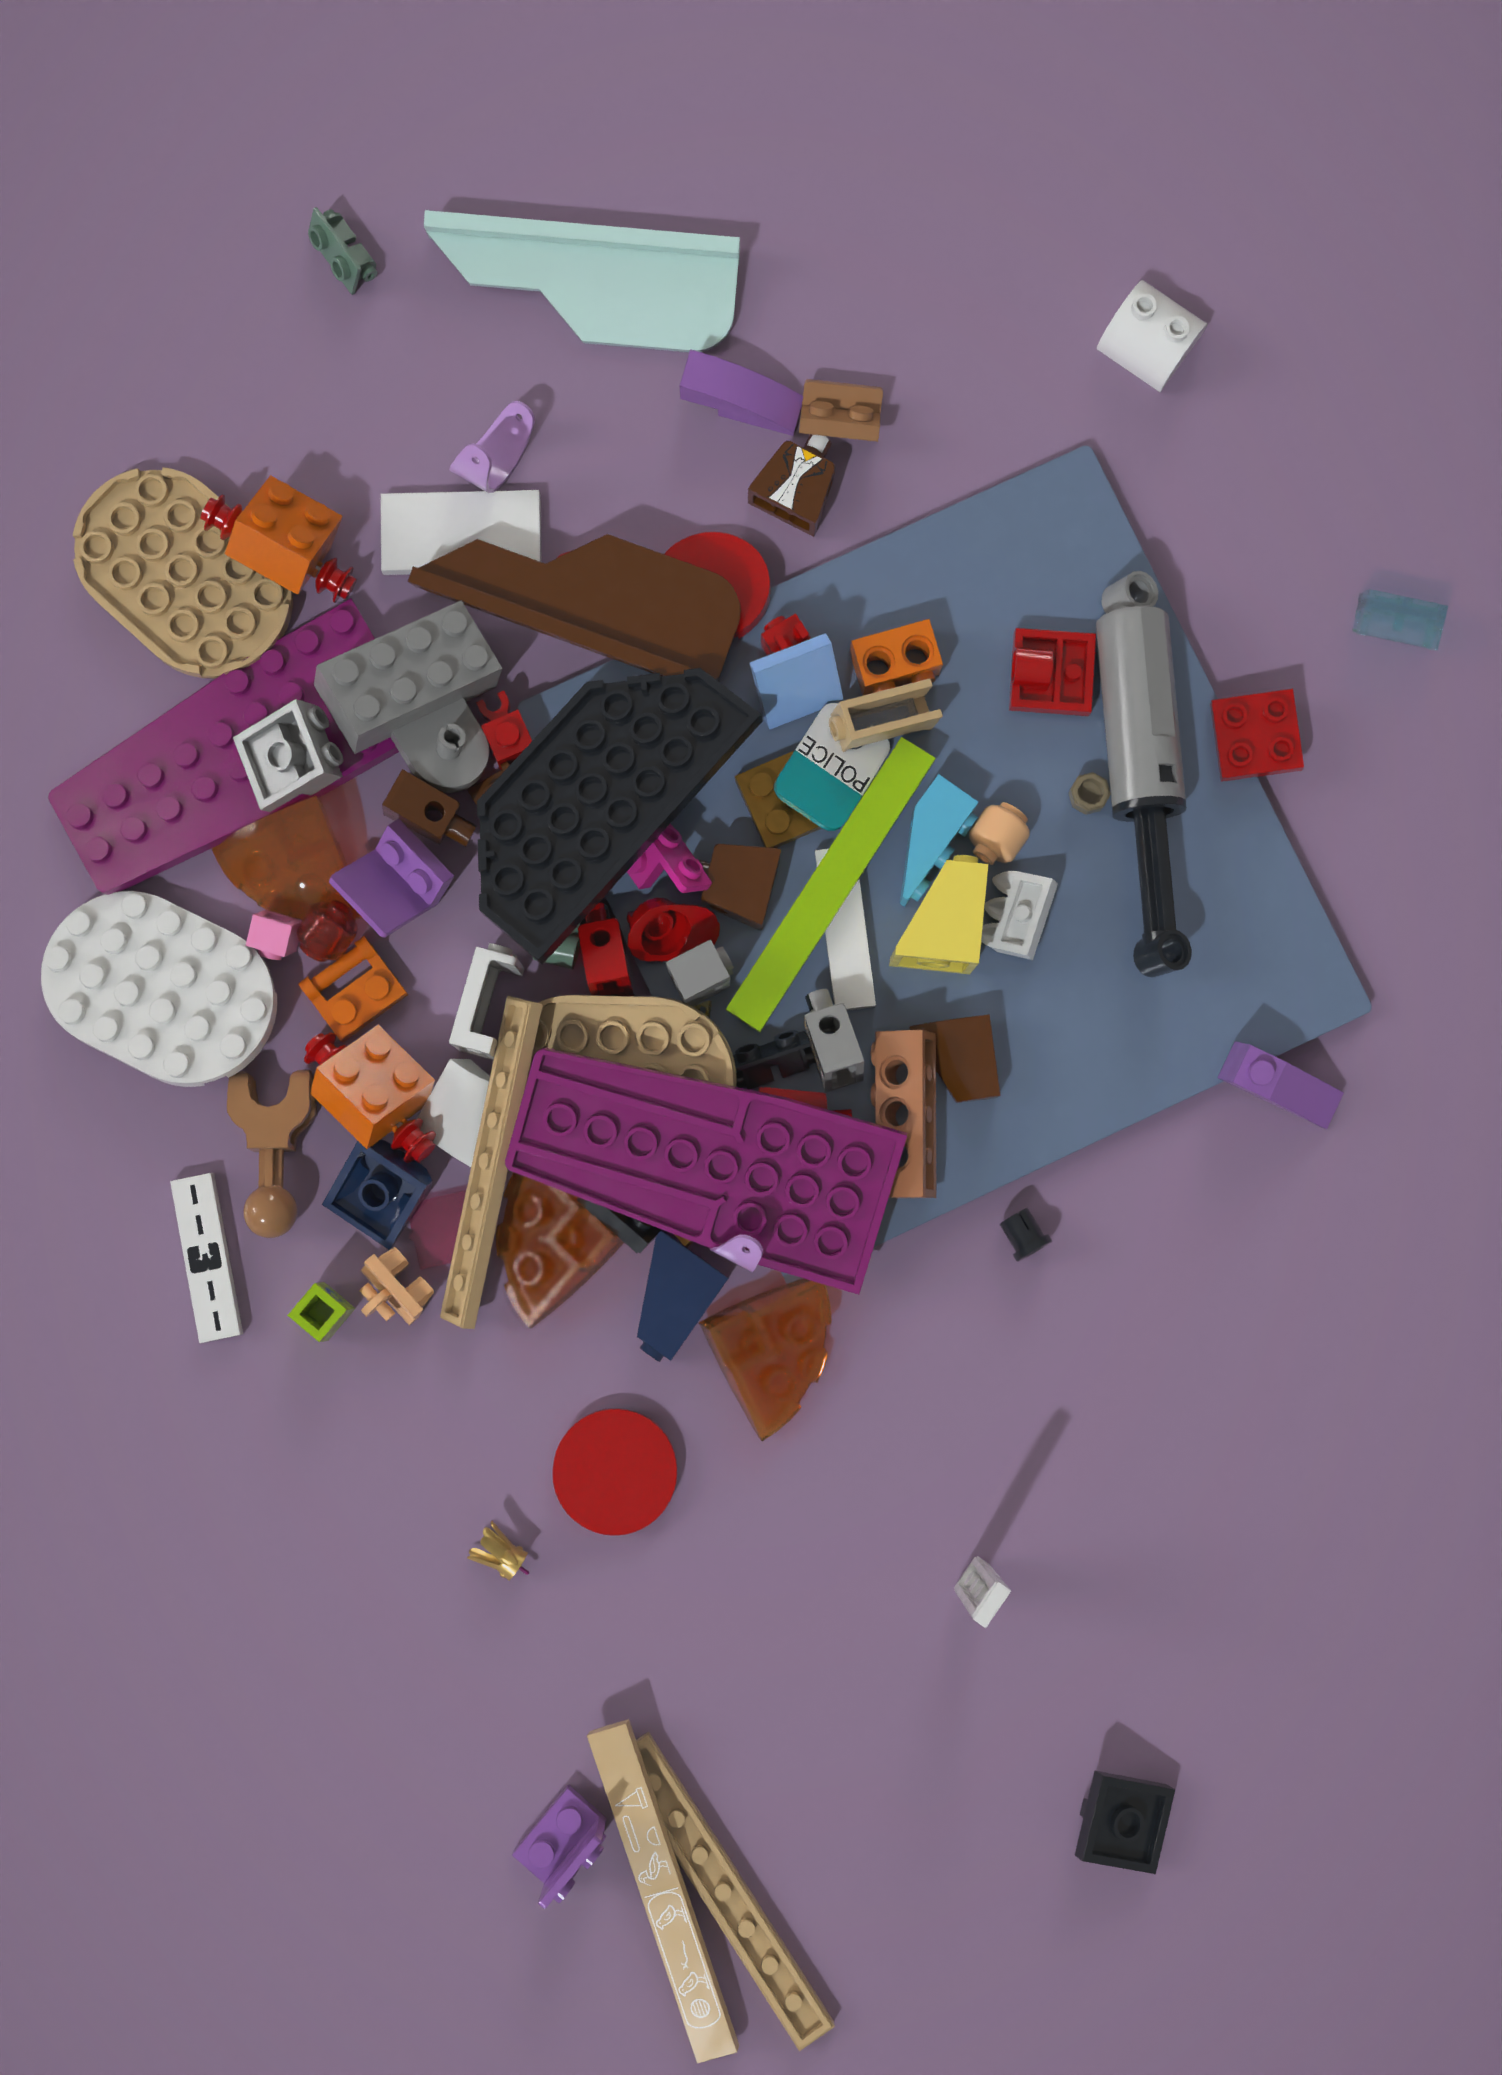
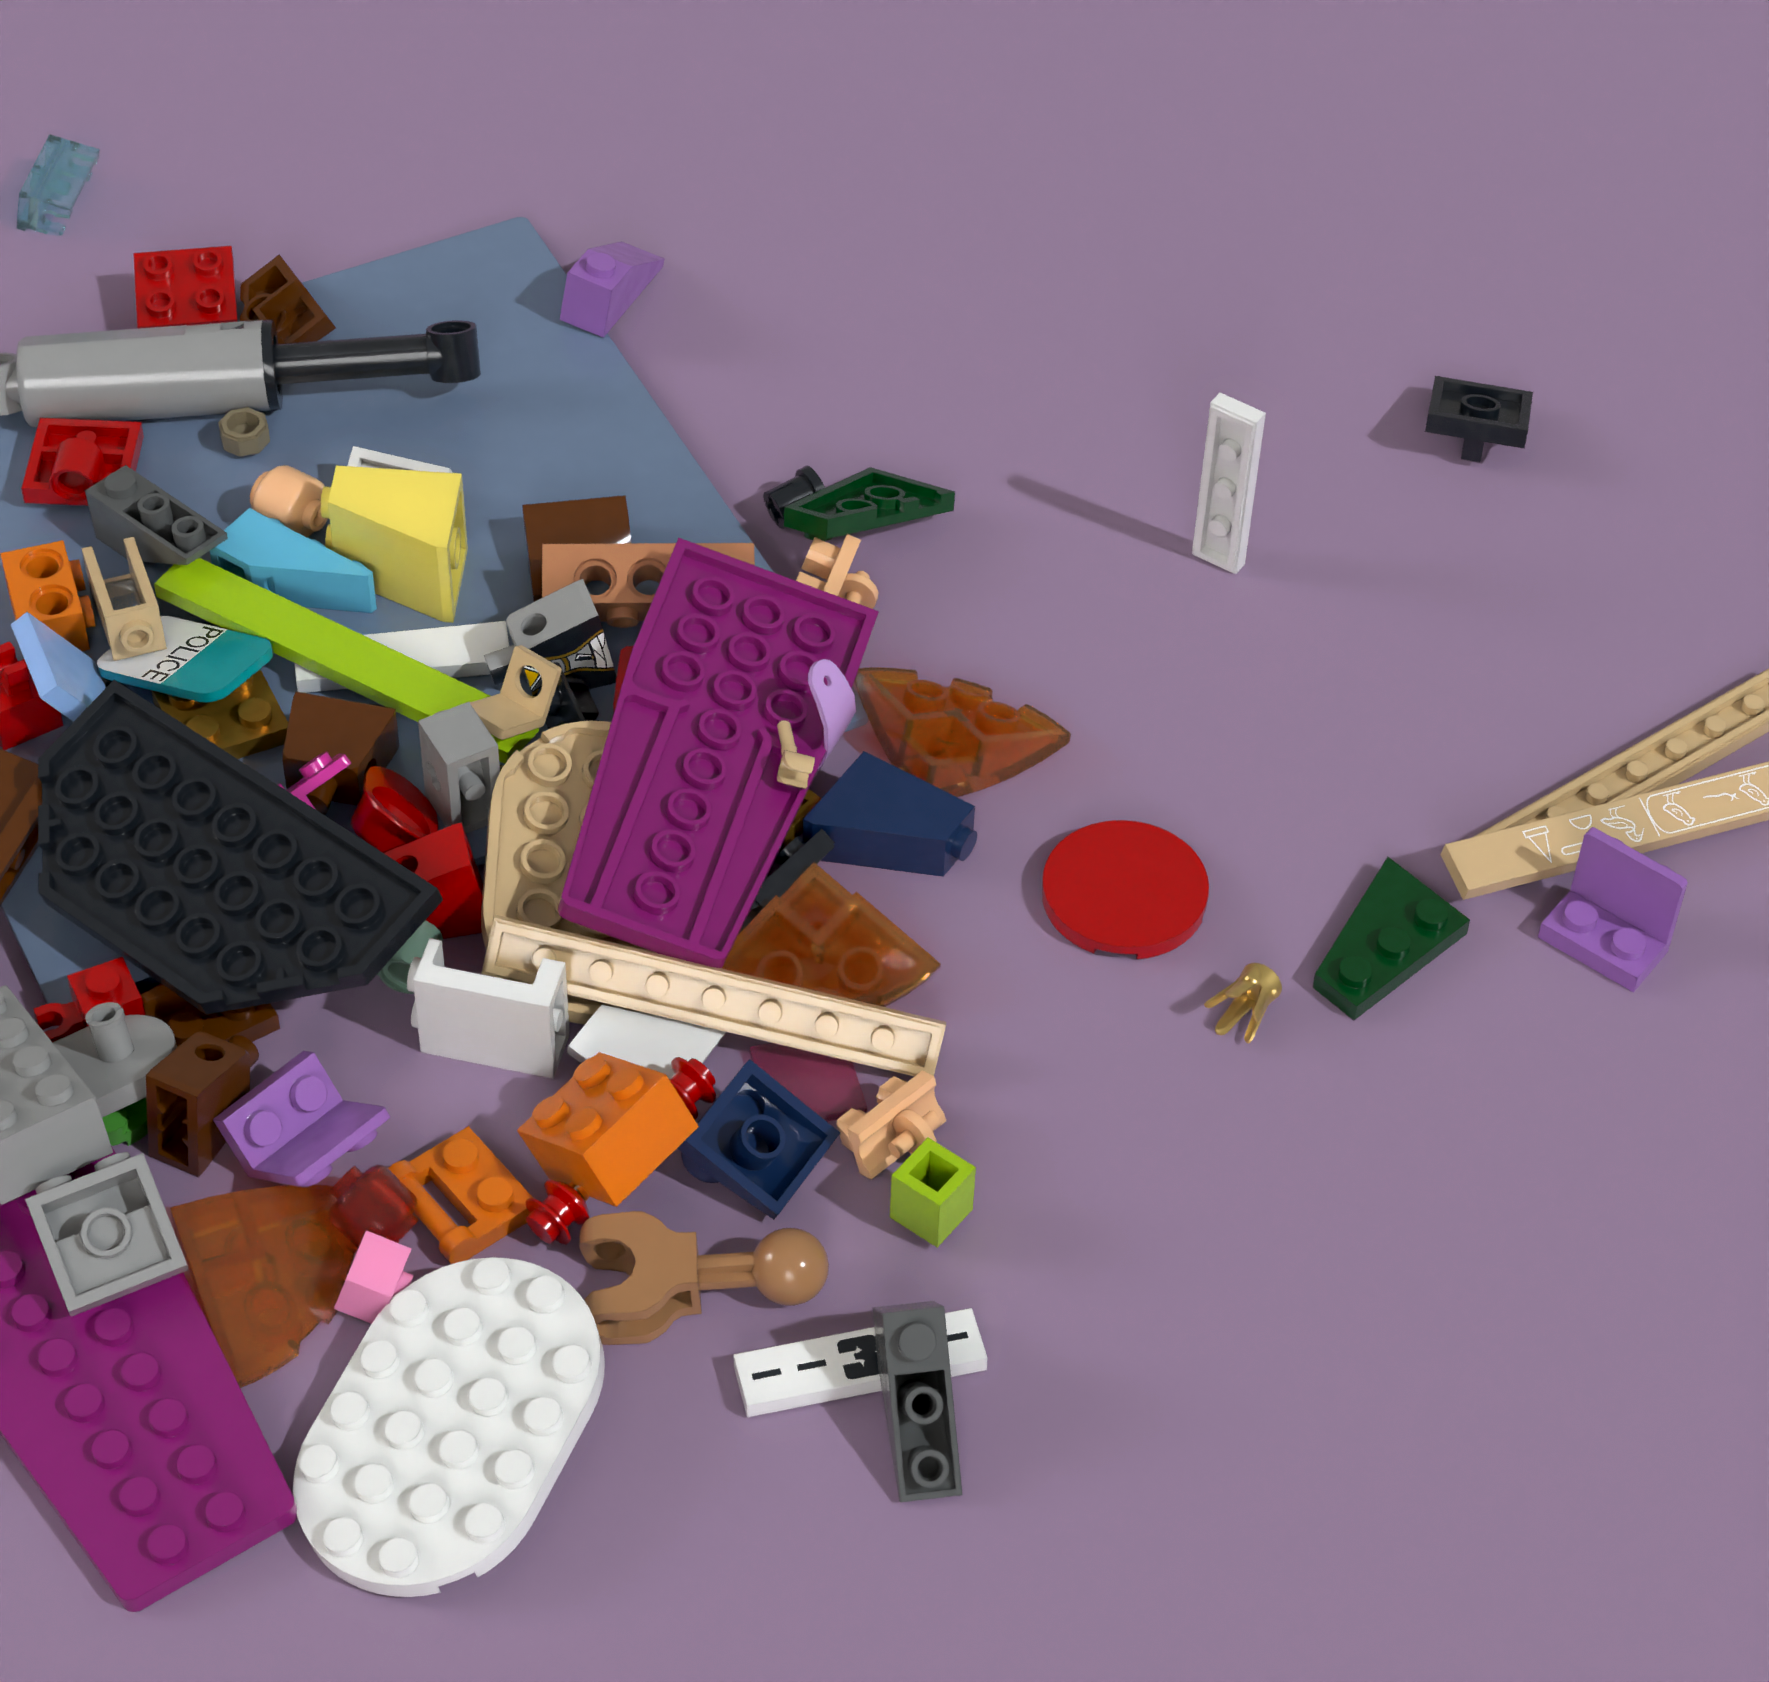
camera: 90 degrees left, 35 degrees down
(161, 1293) = (918, 1399): none -> dark grey slope
(562, 1669) = (1387, 940): none -> dark green wing
(679, 1222) = (793, 767): none -> tan hand
(753, 1009) = (513, 709): none -> tan bracket
(908, 1253) = (833, 565): none -> light nougat hips
(963, 731) = (161, 525): none -> dark grey slope
(1006, 1290) = (865, 503): none -> dark green wing
(1235, 813) = (280, 295): none -> reddish brown slope

